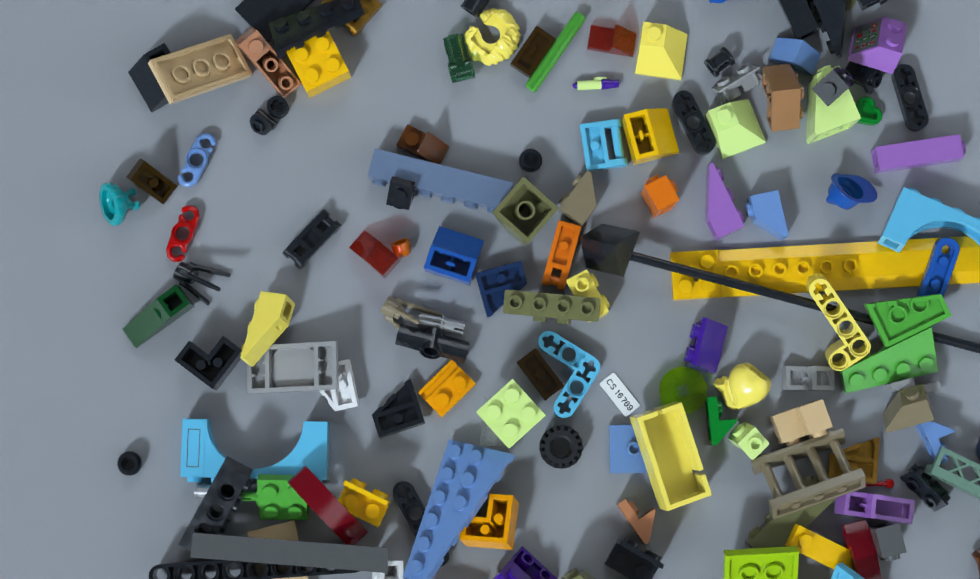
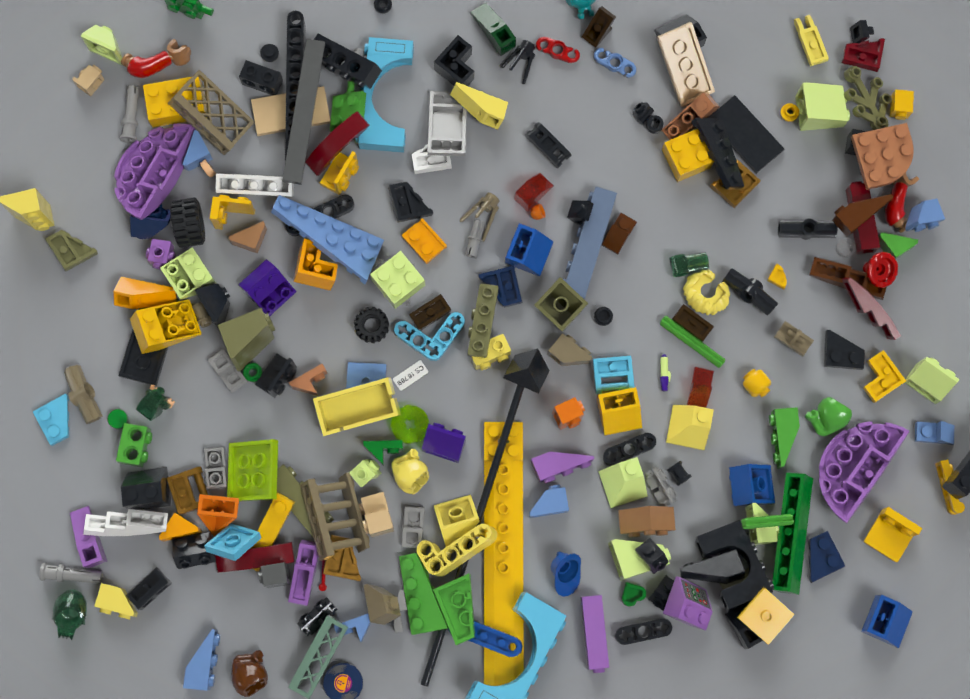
camera: 90 degrees right, 5 degrees down
(432, 343) = (460, 230): black piece -> none
(561, 254) = (526, 335): orange plate -> none
(795, 52) = (683, 537): medium blue slope -> none
(796, 324) = (456, 518): none -> light yellow slope

